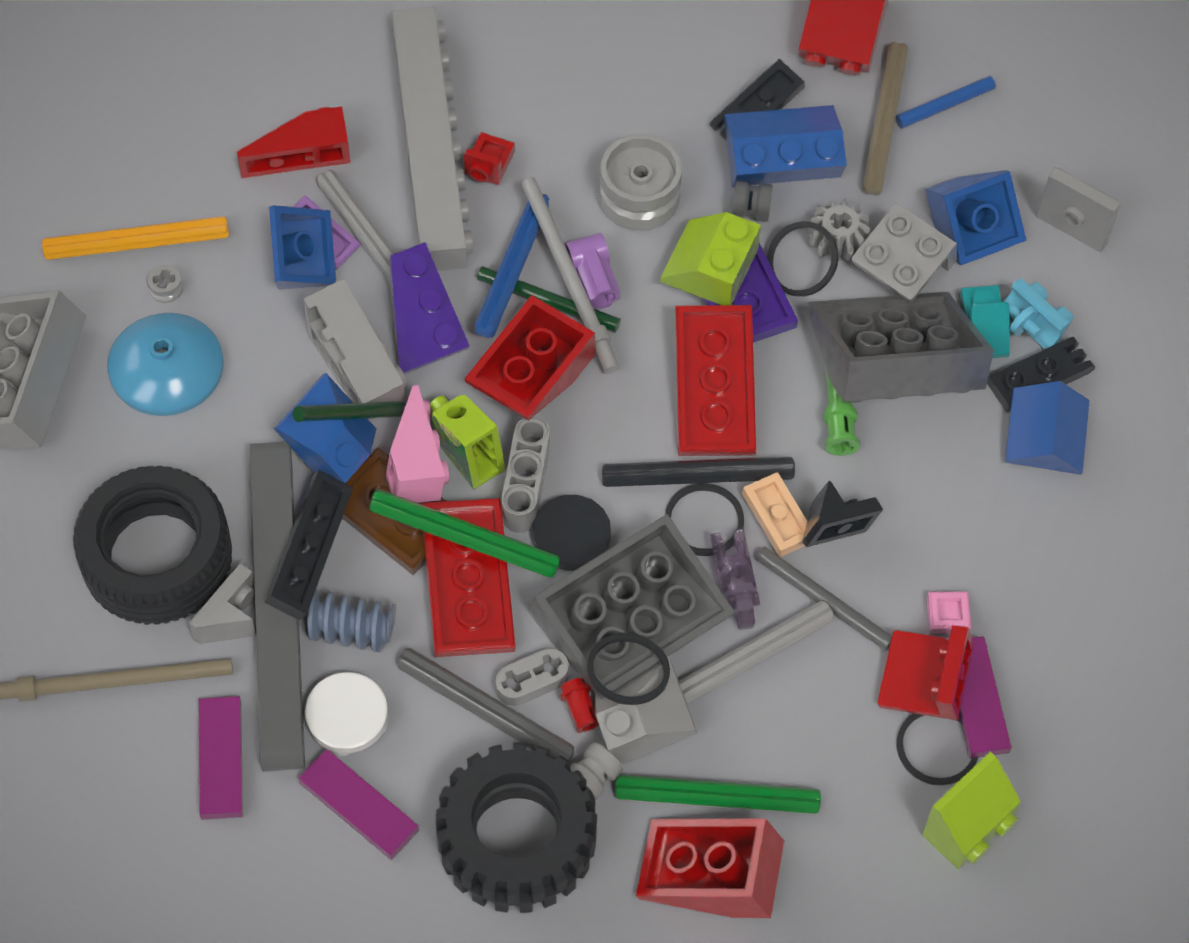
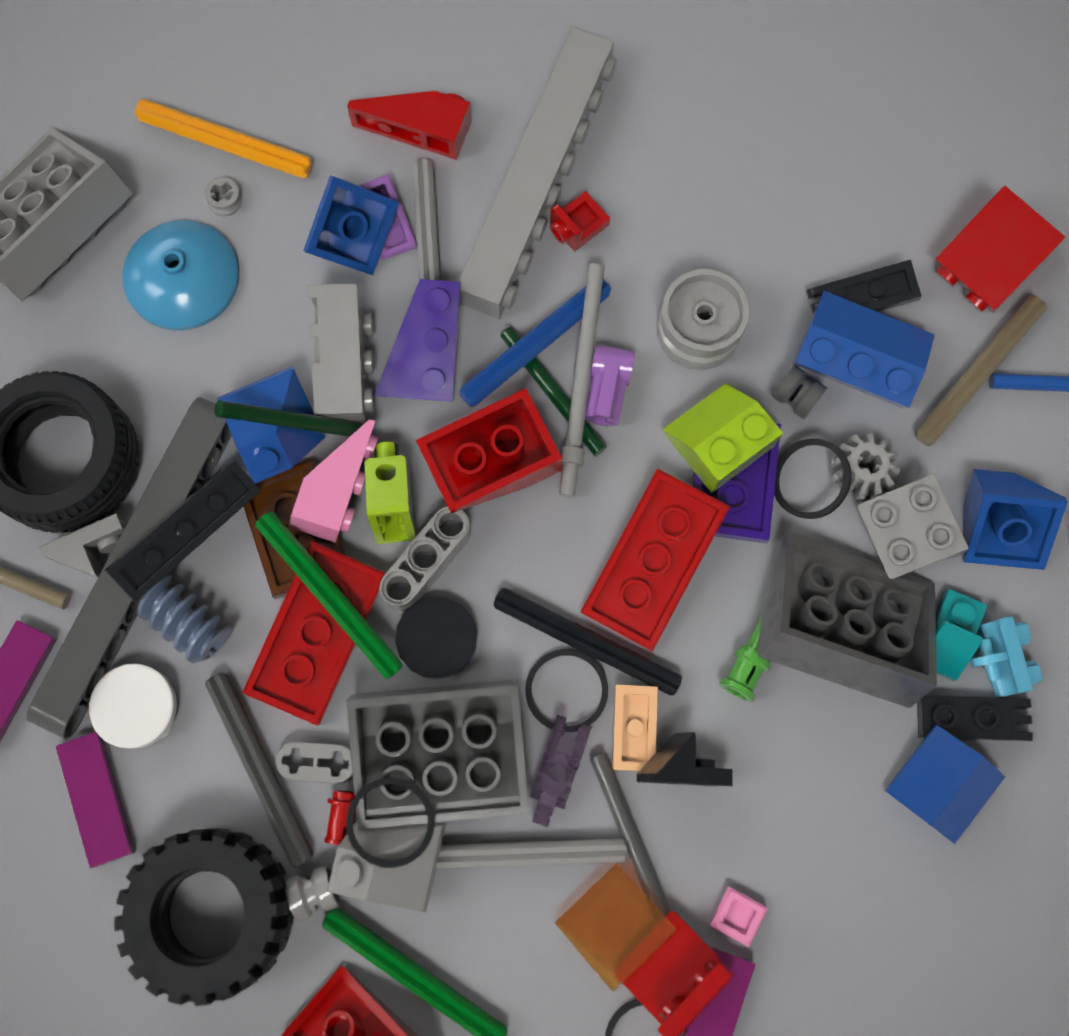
camera: 30 degrees right, 15 degrees up
(856, 665) = (615, 927): none -> clear orange tile

